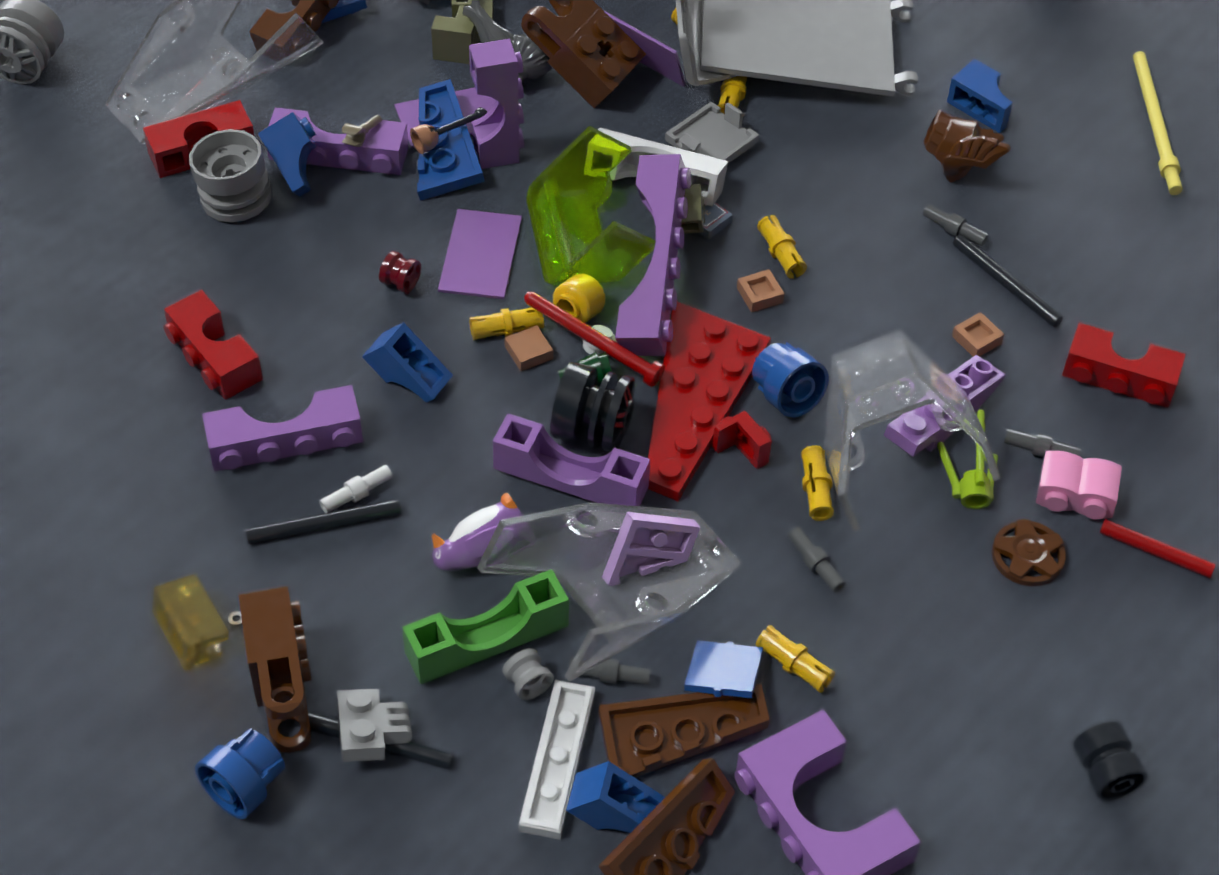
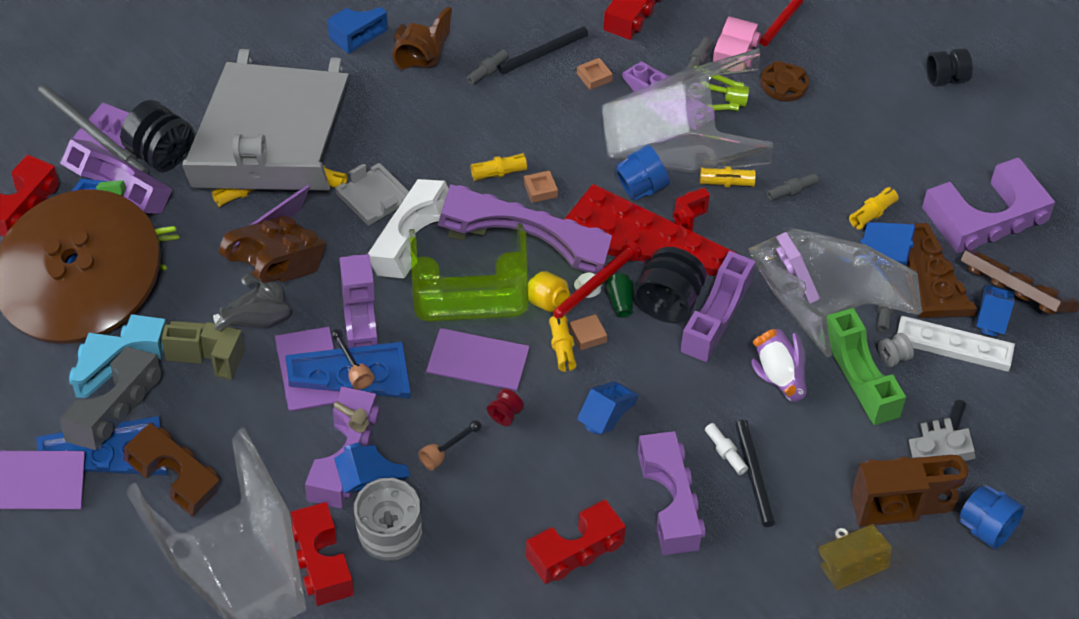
camera: 85 degrees left, 0 degrees up
(333, 218) = (434, 455): none -> hinge

